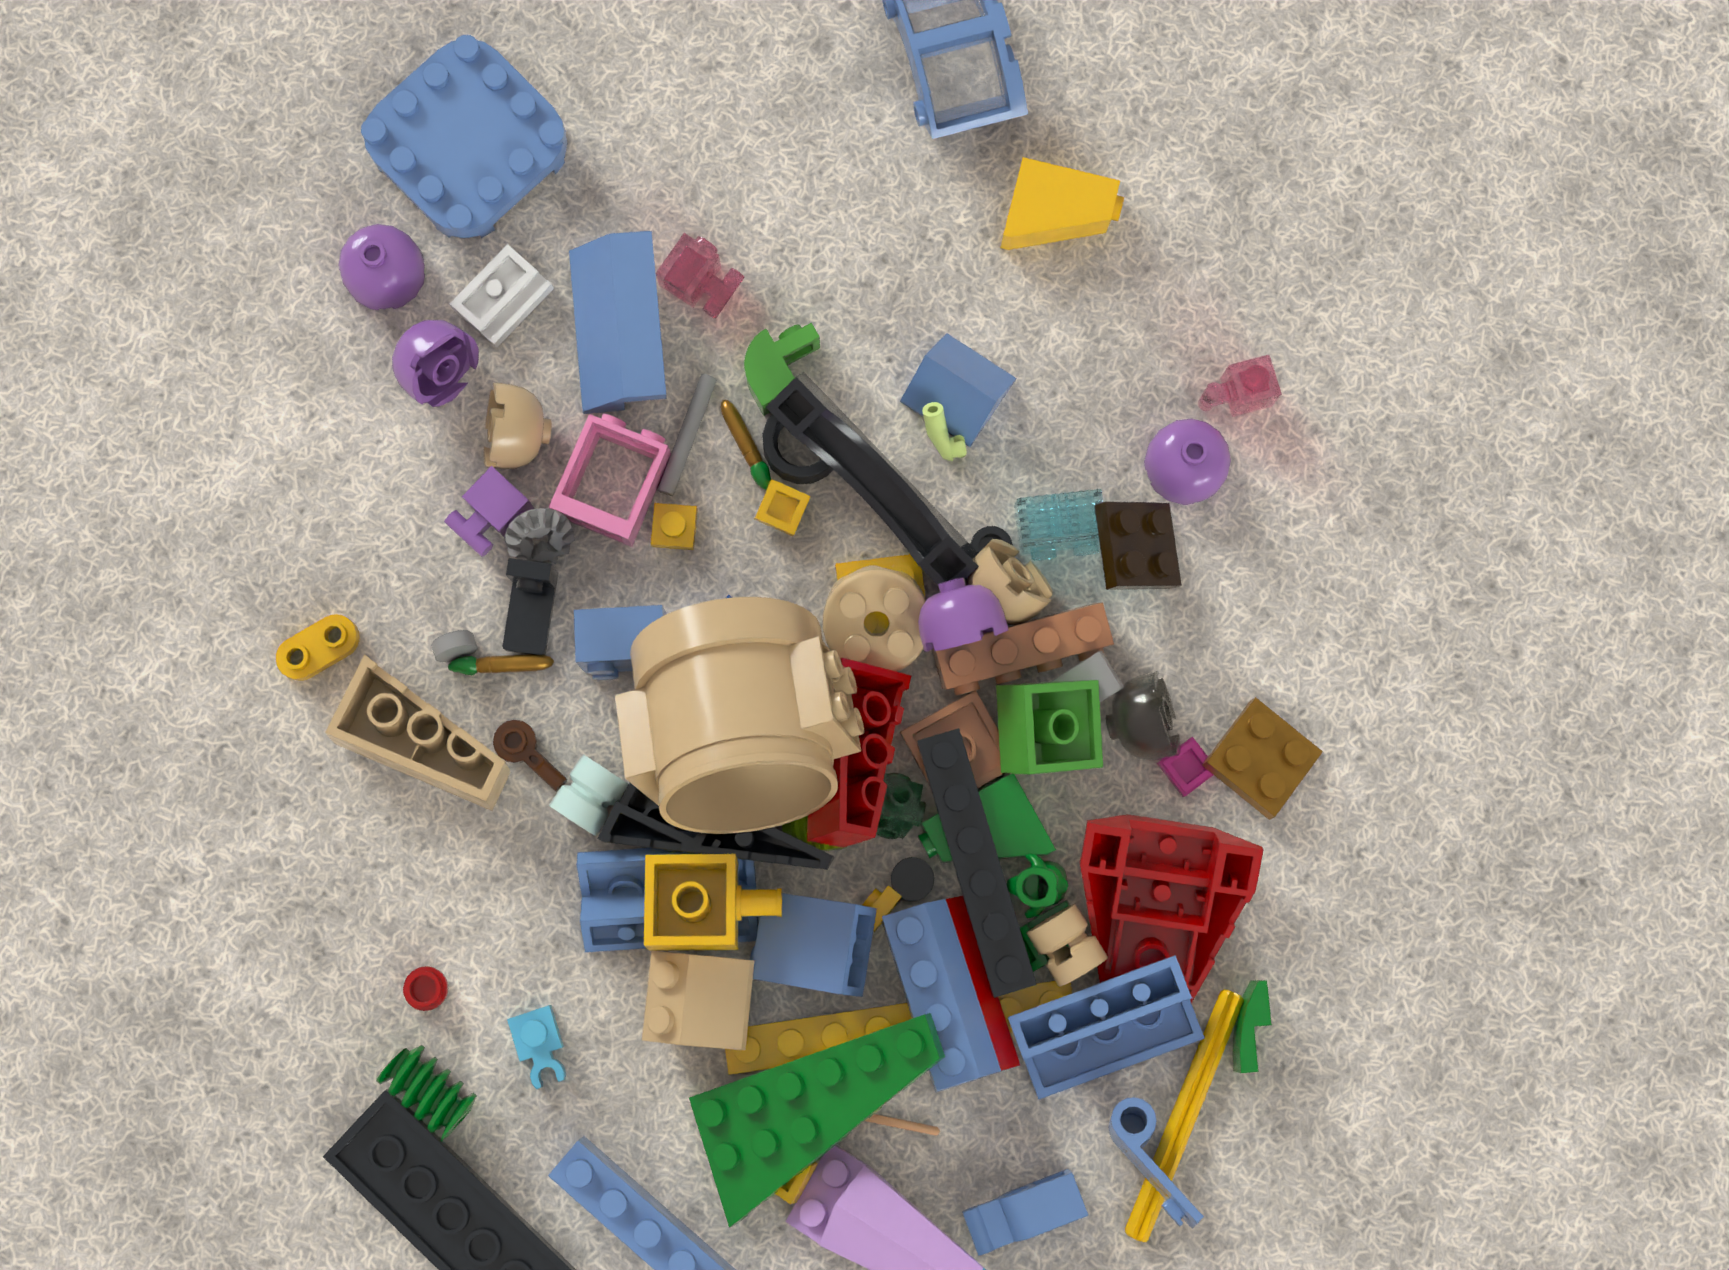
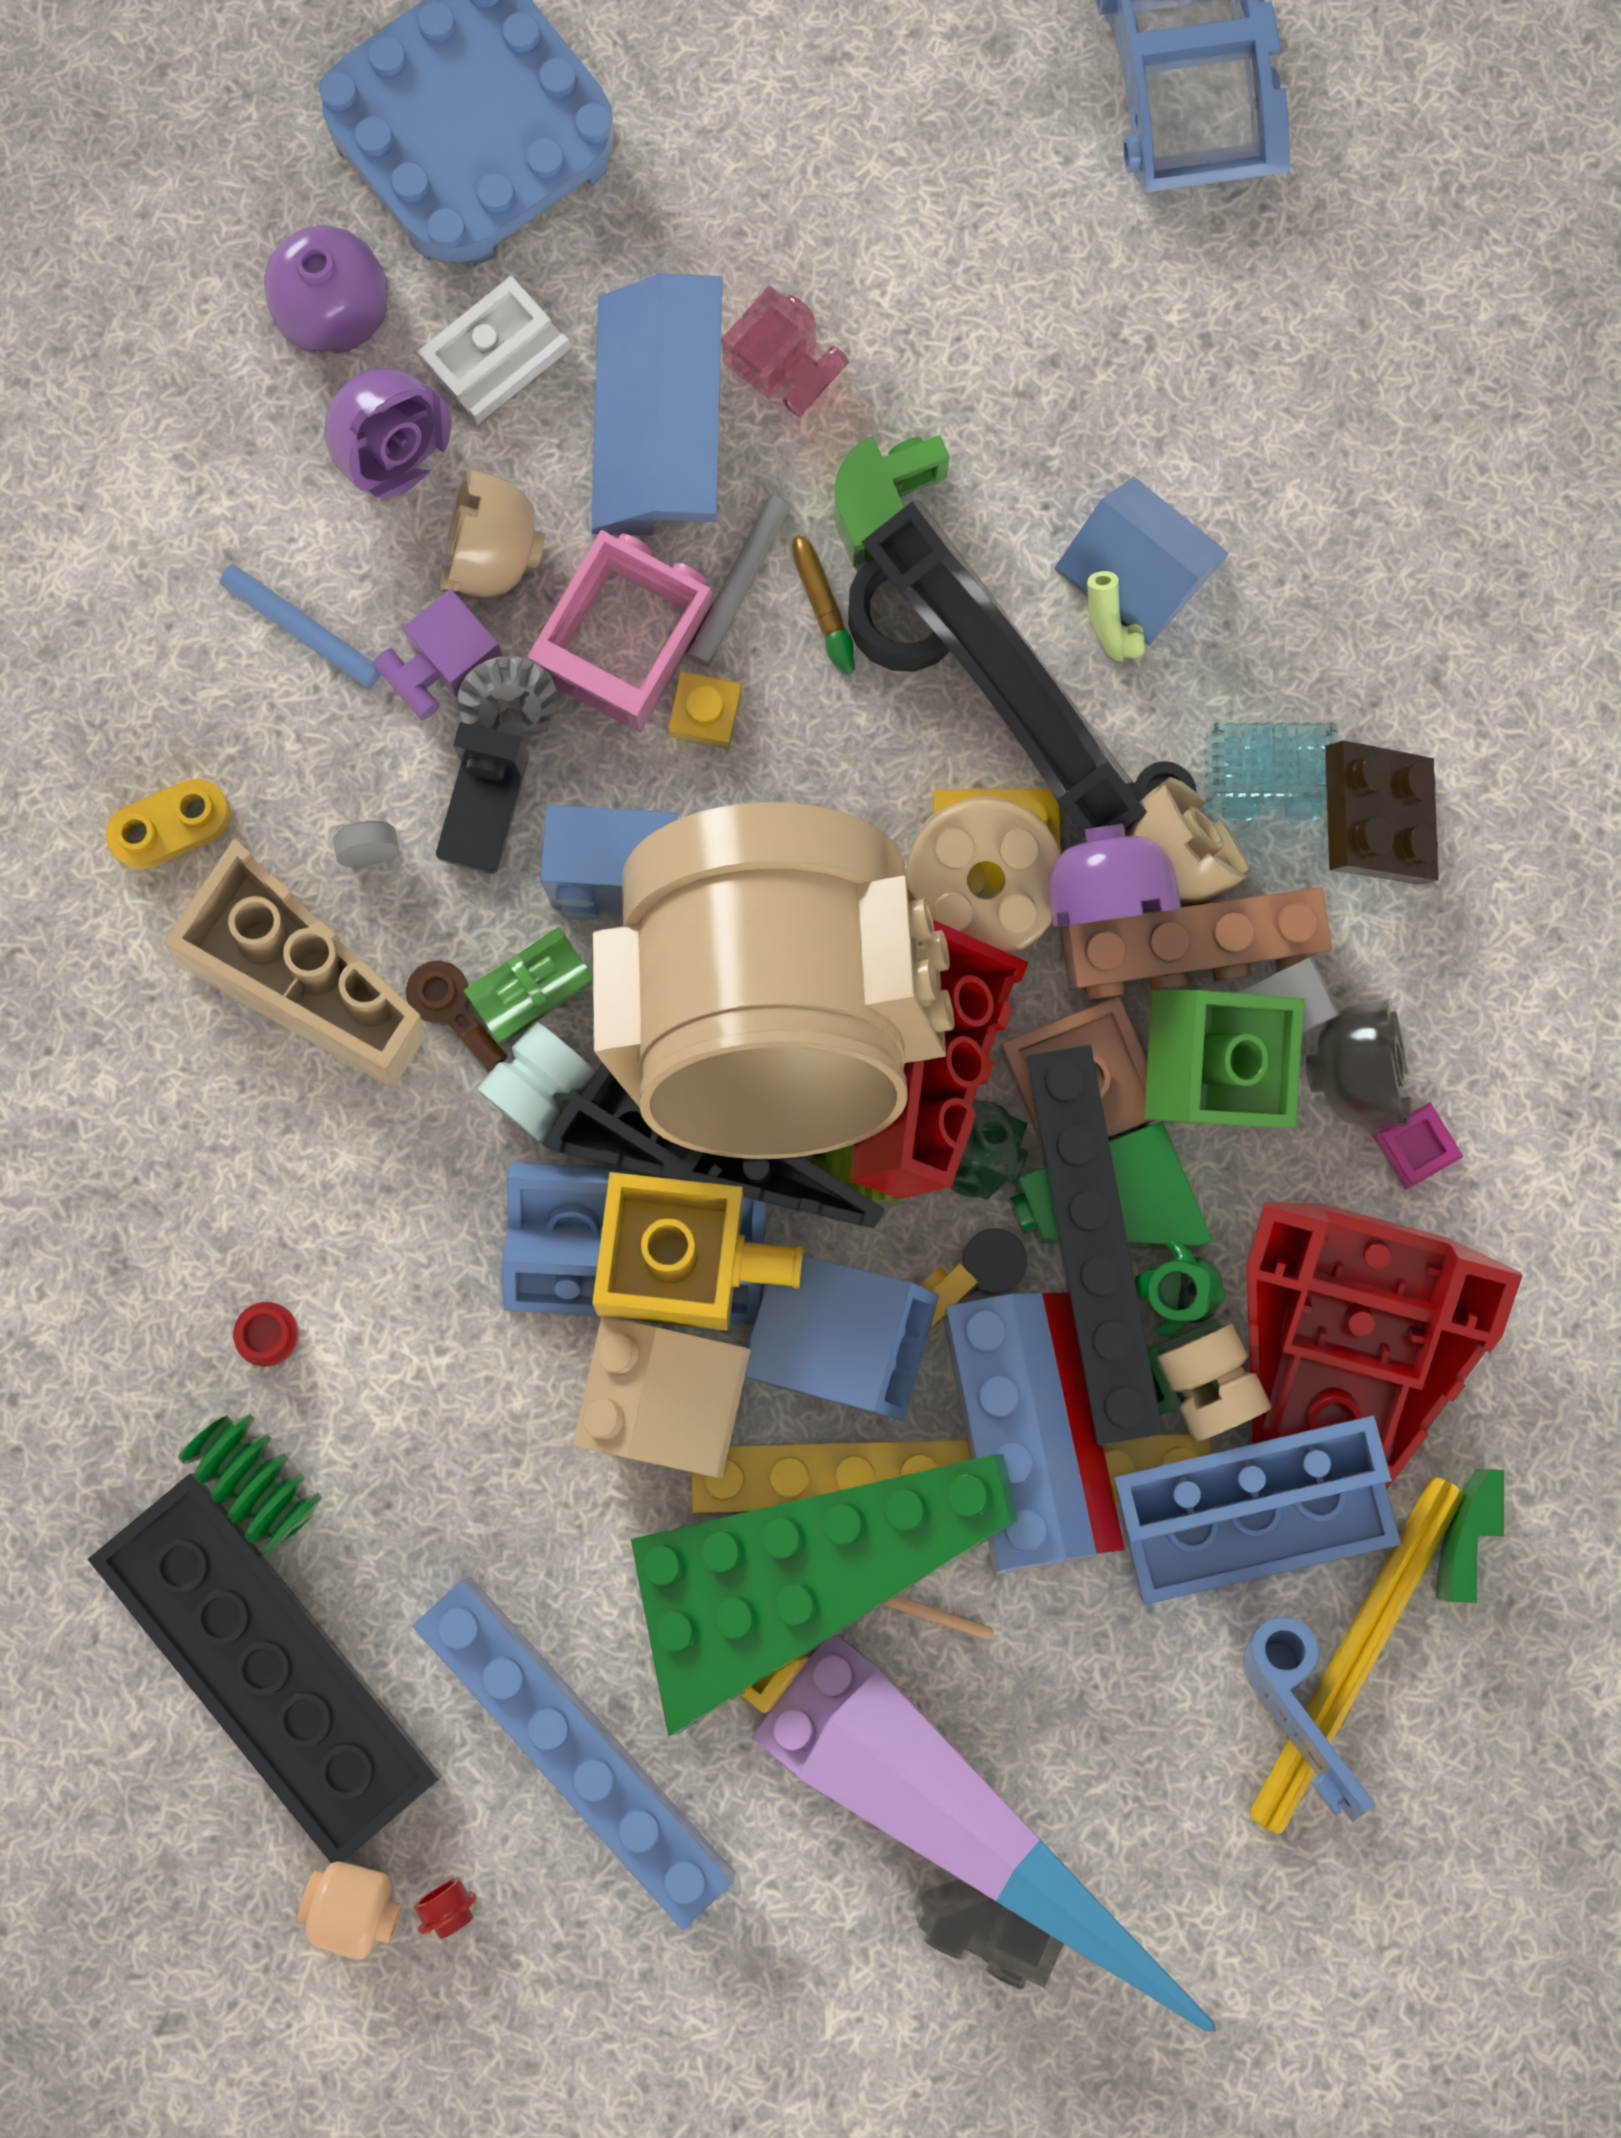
camera: 10 degrees right, 0 degrees up
(391, 500) = (300, 625): none -> medium blue bar
(500, 664) = (424, 878): pearl gold piece -> none
(535, 1038) = (419, 1424): medium azure plate -> none
(576, 730) = (529, 985): none -> bright green hips
(782, 507) = (865, 699): yellow plate -> none
(1025, 1212) = (1107, 1767): medium blue piece -> none
(1059, 205) = (1320, 309): yellow slope -> none
(1187, 461) = (1467, 701): medium lavender cylinder -> none
(1244, 386) = (1563, 601): clear pink brick -> none
(1262, 758) = (1530, 1145): pearl gold plate -> none

